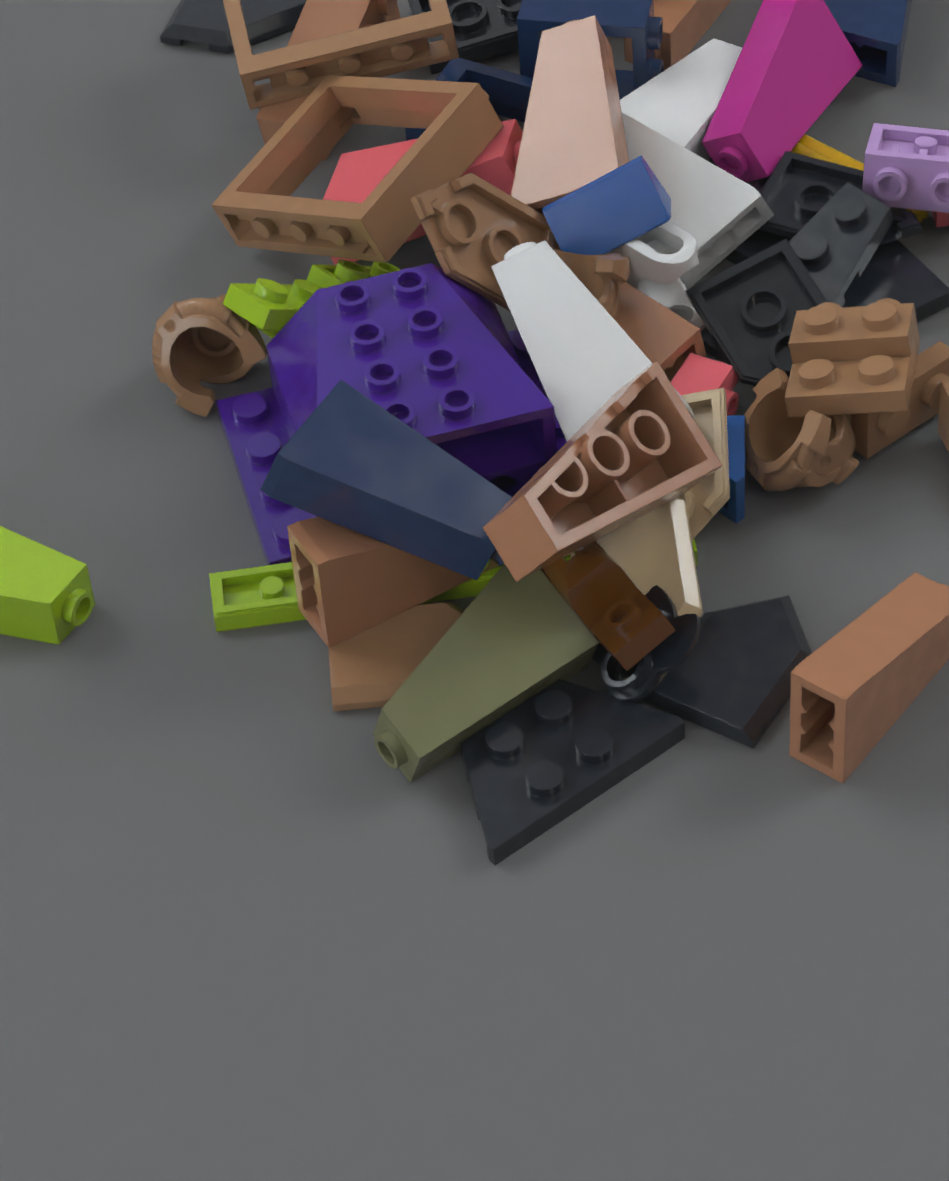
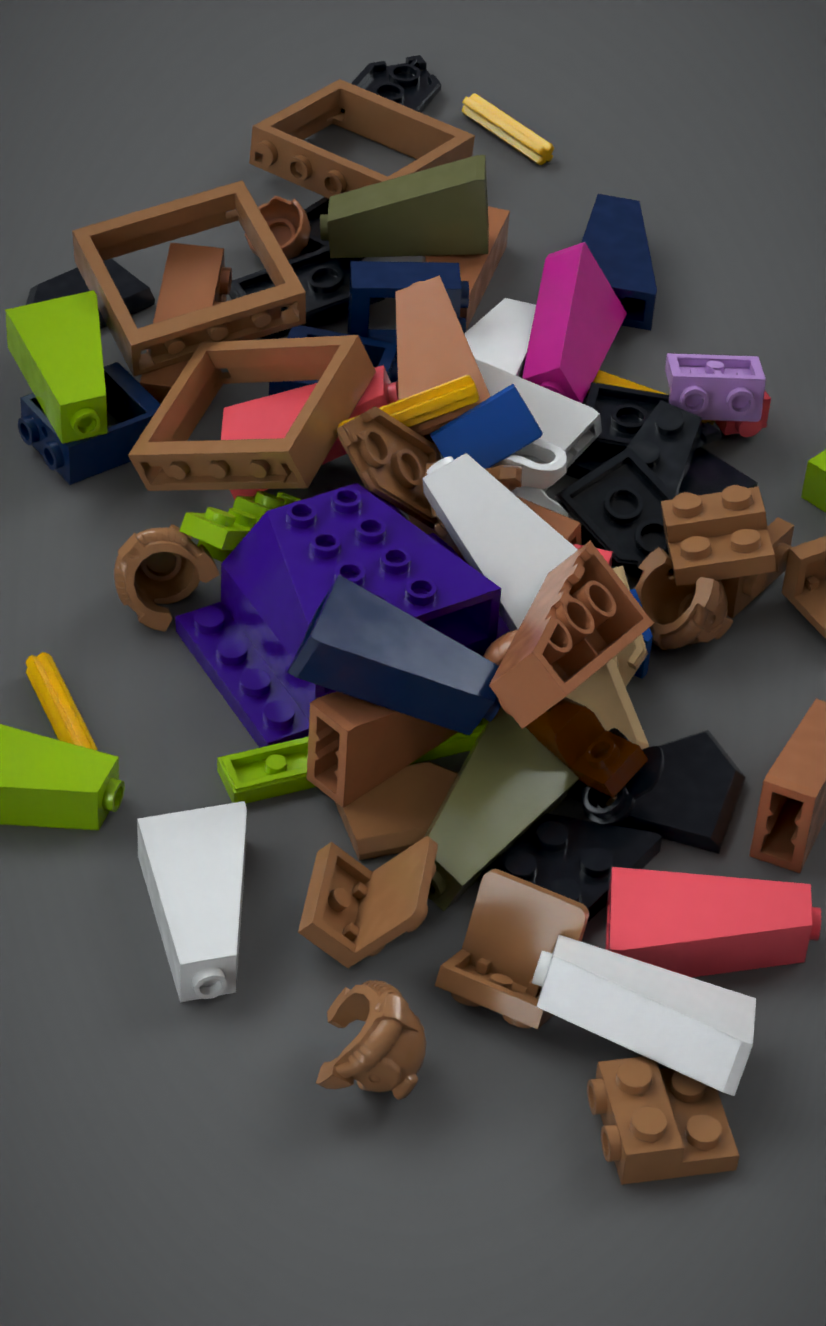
camera: 20 degrees left, 5 degrees down
(57, 494) = (57, 701): none -> yellow axle
(134, 731) = (196, 890): none -> white slope
(173, 87) = (62, 362): none -> lime slope
(180, 135) = (91, 456): none -> dark blue window
(271, 935) = (387, 1048): none -> medium nougat helmet
(303, 763) = (359, 910): none -> medium nougat bracket
(458, 846) = (503, 946): none -> medium nougat bracket
(547, 170) = (432, 402): none -> yellow axle
(568, 1063) = (659, 1122): none -> medium nougat plate
(585, 935) = (650, 1011): none -> white slope
(691, 835) = (708, 921): none -> coral slope

